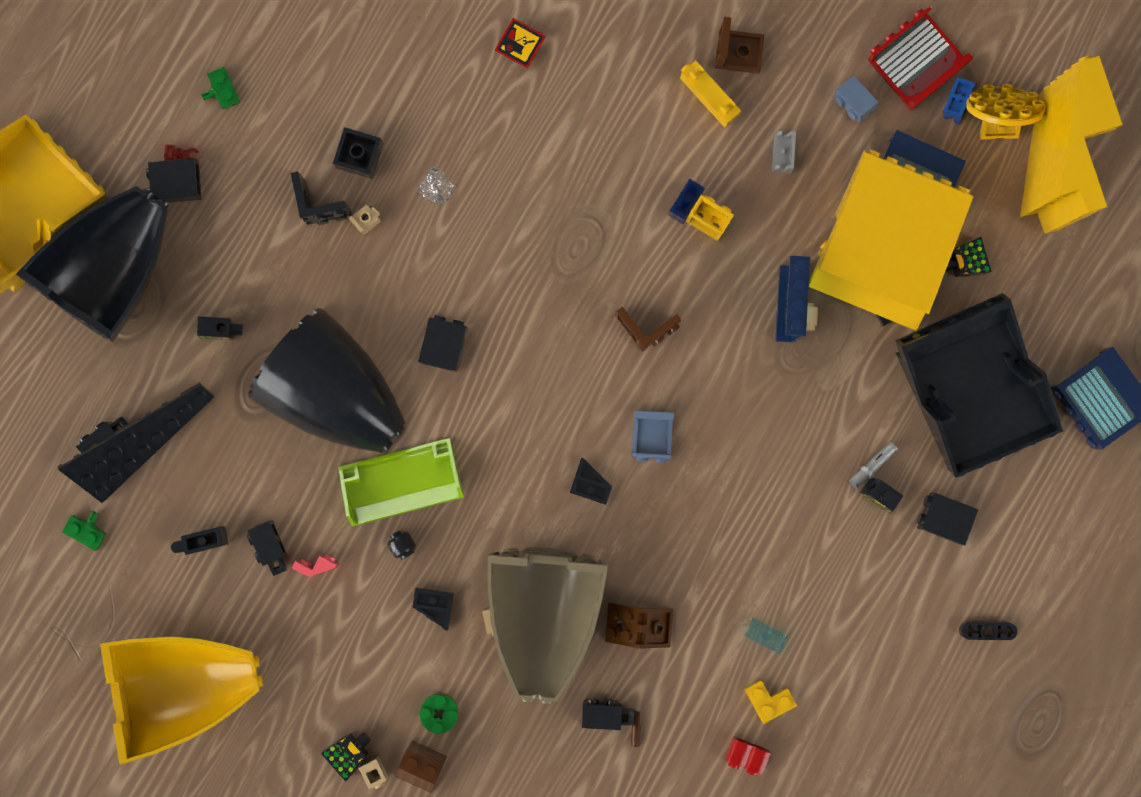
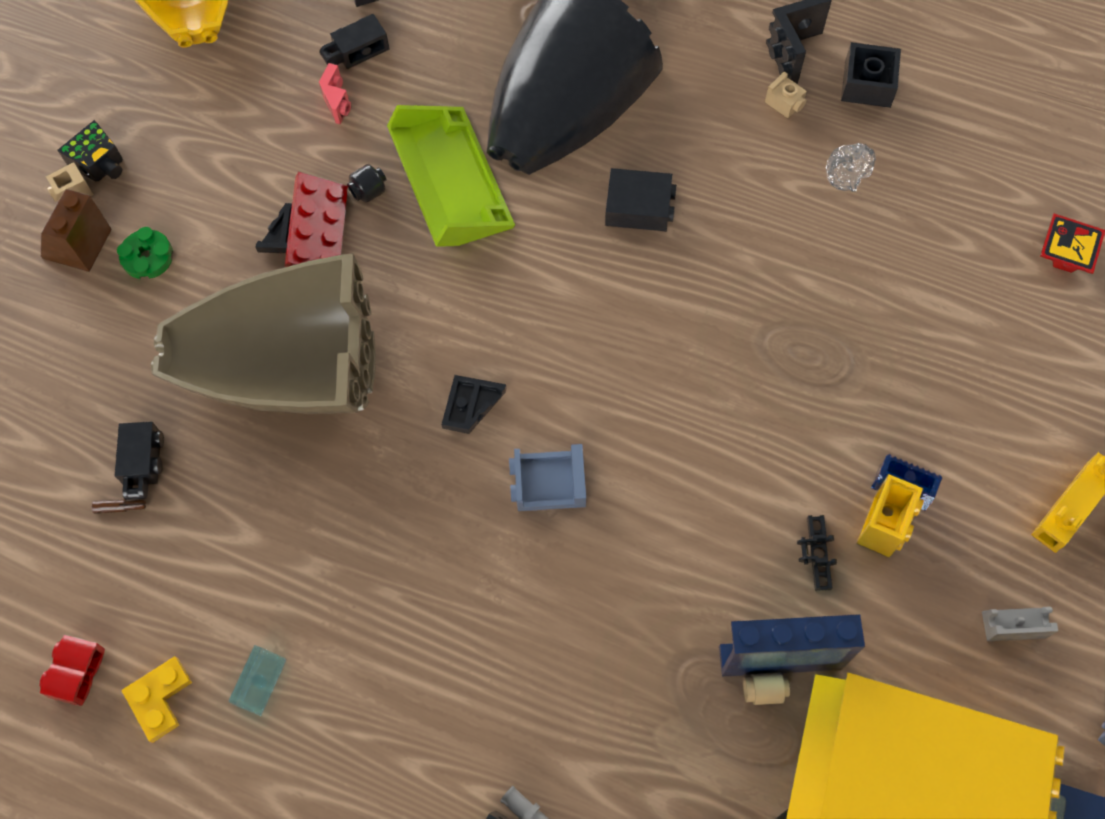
camera: 90 degrees right, 20 degrees down
(435, 584) = (315, 219): none -> plate
(639, 338) = (696, 458): reddish brown bracket -> none
(639, 626) = (265, 479): reddish brown bracket -> none
(715, 267) = (815, 560): none -> black piece

